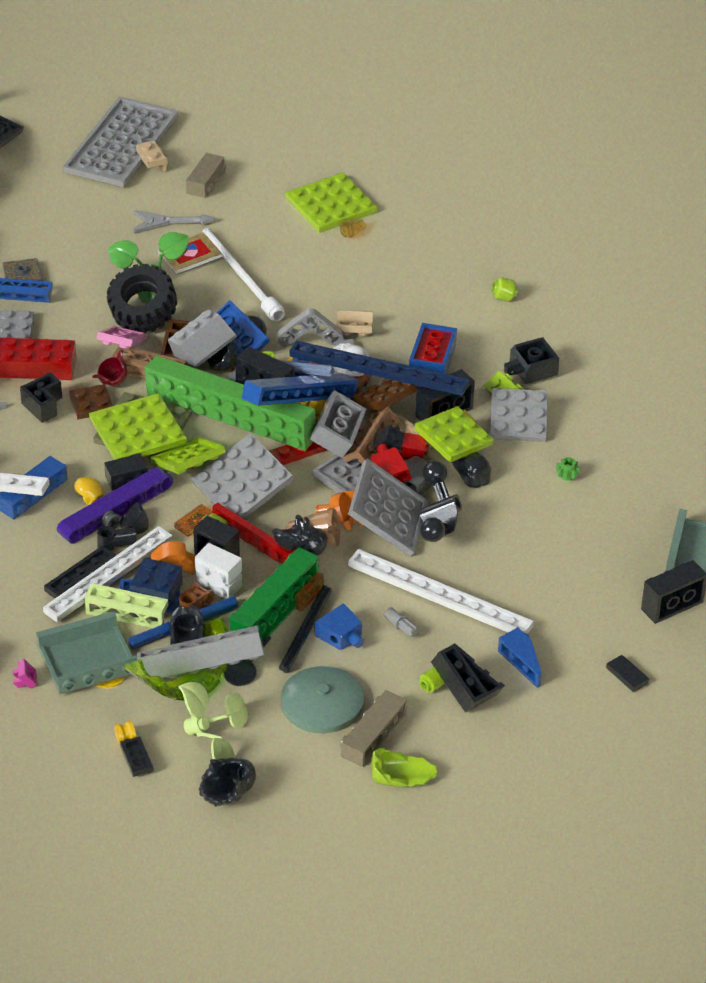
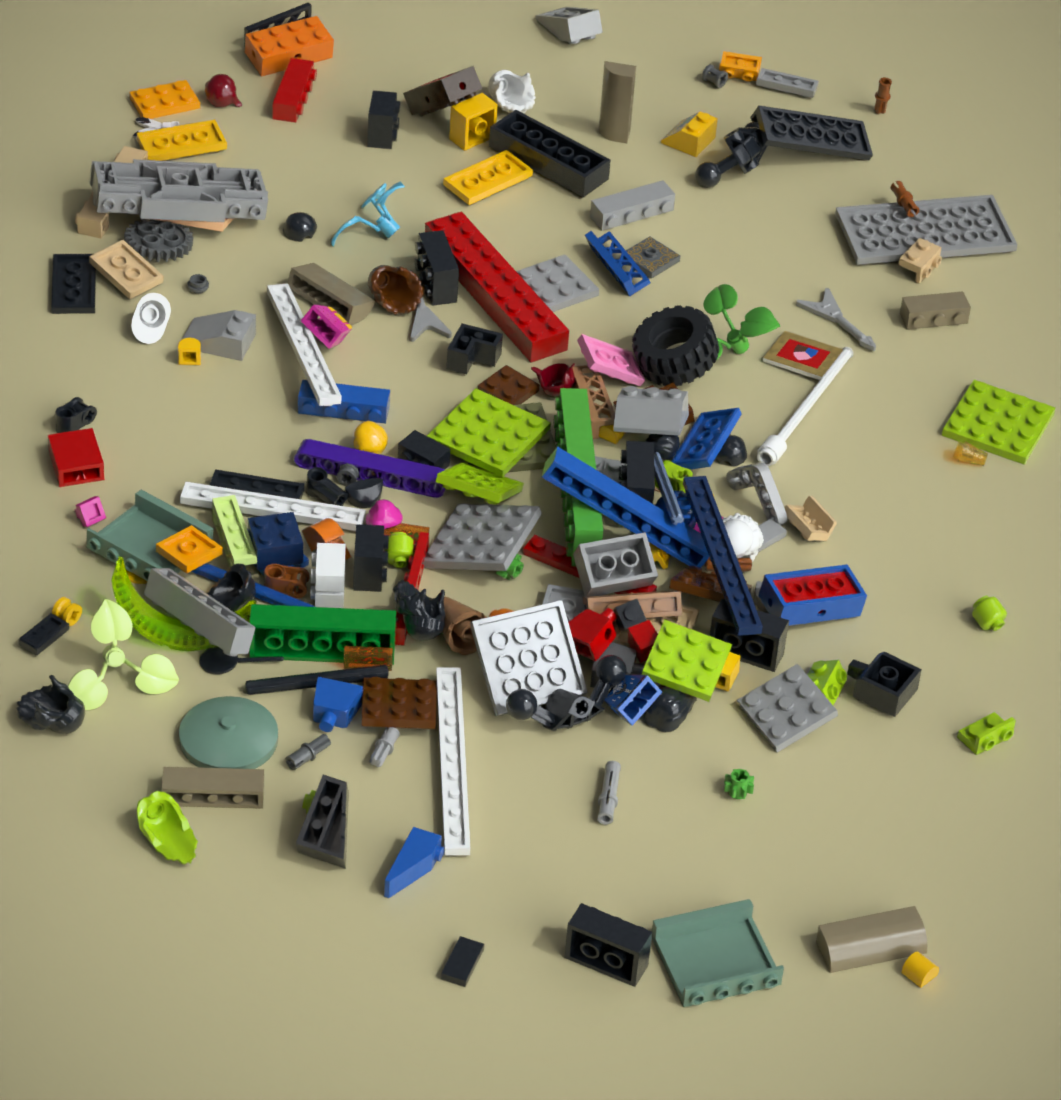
camera: 55 degrees right, 0 degrees up
(90, 132) = (904, 198): none -> dark orange pin
(123, 634) = (189, 549): none -> light orange plate
(174, 521) = (384, 514): none -> dark pink hat
(367, 594) = (399, 703): none -> reddish brown plate
(374, 663) = (307, 752): none -> dark grey axle
(462, 477) = (632, 697): none -> blue torso
(535, 536) = (606, 811): none -> light grey pin
(603, 342) = (986, 733): none -> lime bracket

